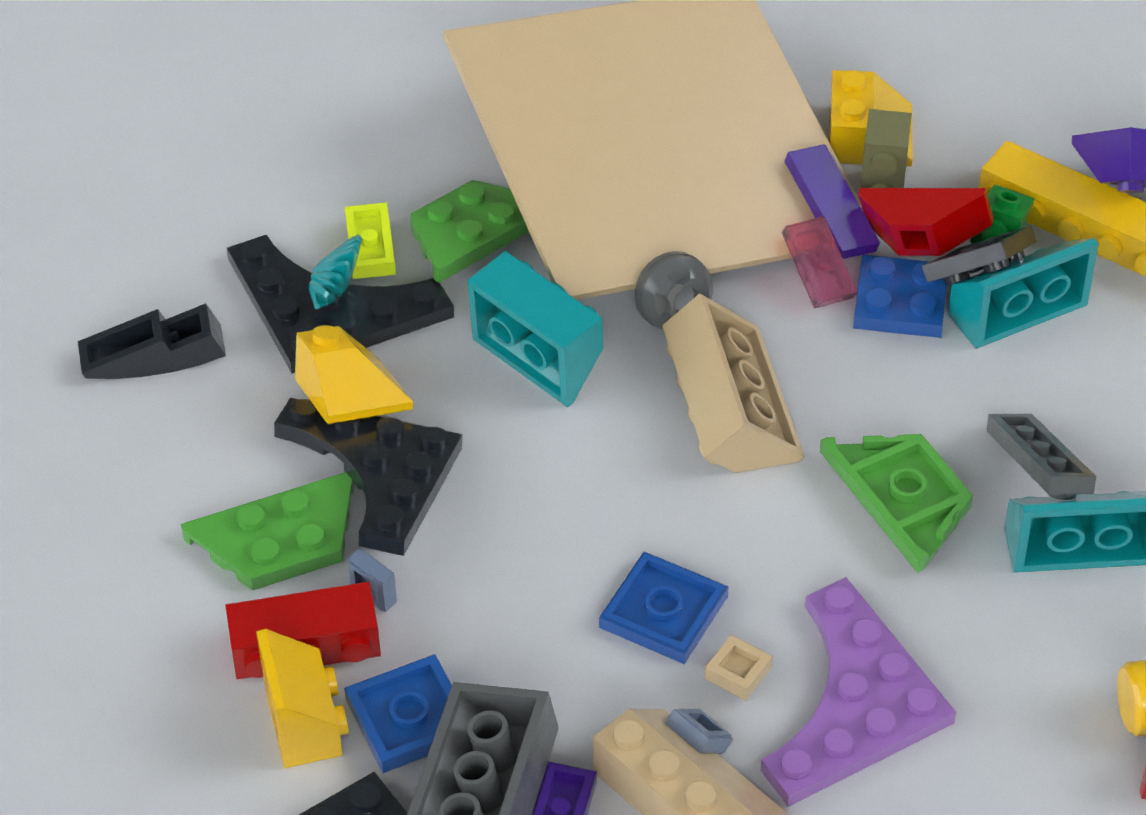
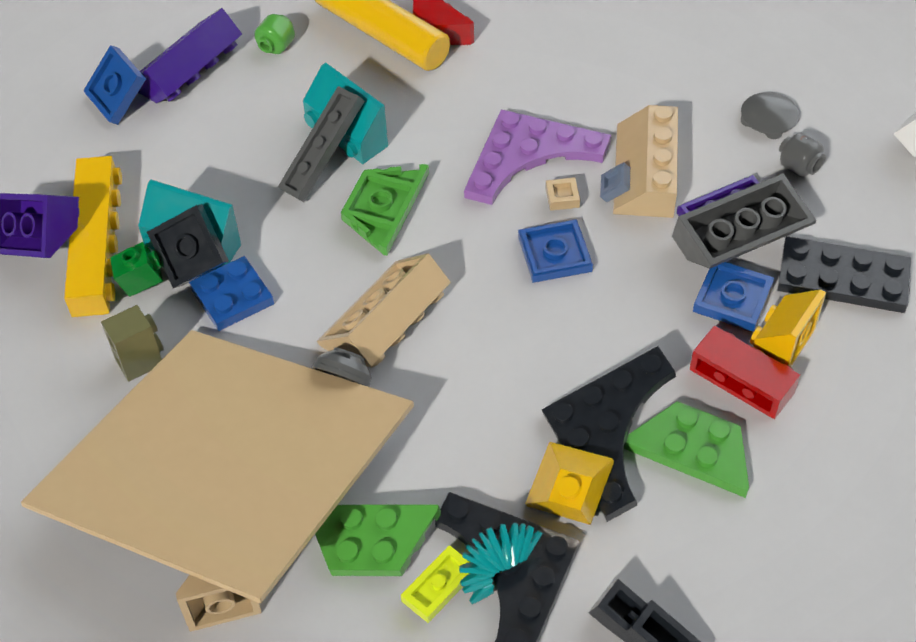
camera: 130 degrees left, 5 degrees up
(382, 580) = (682, 367): sand blue tile -> none
(534, 326) = (439, 408): teal slope -> none
(819, 262) = (245, 332): clear pink plate -> none
(832, 198) = (190, 352): dark purple tile -> none
(850, 101) = (89, 395): yellow slope -> none
(926, 218) = (179, 285): red slope -> none

